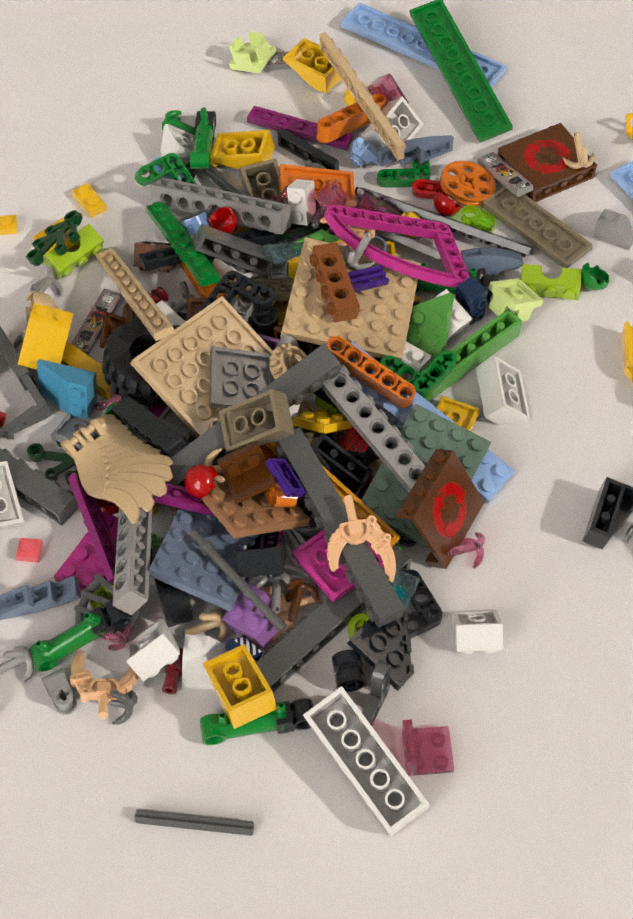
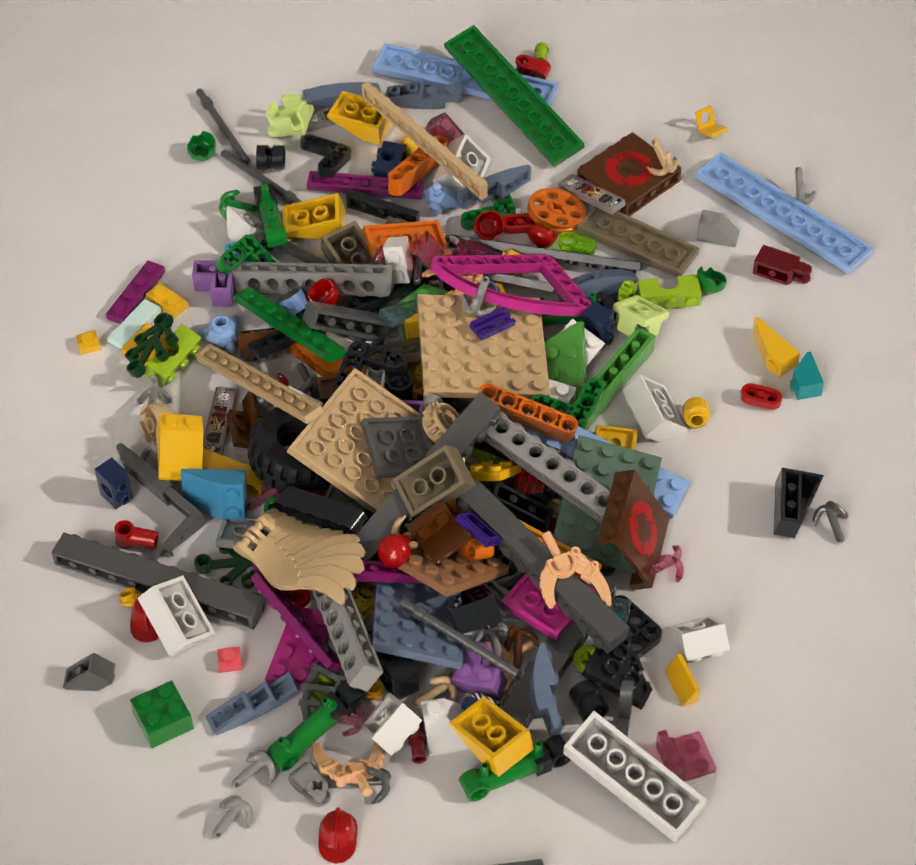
camera: 15 degrees left, 5 degrees down
(52, 215) = (133, 323): none -> light aqua tile
(63, 187) = (135, 291): none -> magenta plate
(69, 749) = (337, 836): none -> red piece
(125, 237) = (222, 332): none -> light blue rock
(135, 195) = (220, 285): none -> medium lavender brick
(151, 610) = (376, 691): none -> yellow plate
(161, 522) = (364, 601): none -> yellow head
(165, 67) = (202, 146): none -> green hair
(185, 31) = (208, 104): none -> dark grey bar
(221, 86) = (270, 157): none -> black wheel
(227, 125) = (288, 196): none -> dark grey bar
(281, 93) = (334, 154): none -> black beam
(290, 38) = (327, 94): none -> sand blue slope
(306, 644) = (541, 691): none -> sand blue slope
(327, 105) = (388, 158): none -> dark blue brick
(334, 282) = (464, 332): dark orange brick -> none
(374, 56) = (420, 97): none -> sand blue slope
(399, 185) = (489, 225): none -> red hair
(447, 671) = (682, 681): none -> yellow slope
(486, 47) = (532, 67): none -> red piece
(500, 33) = (541, 50): none -> lime pin
(509, 269) = (627, 290): none -> lime gear
(541, 403) = (696, 412): none -> yellow head
(610, 401) = (762, 396): none -> red plate

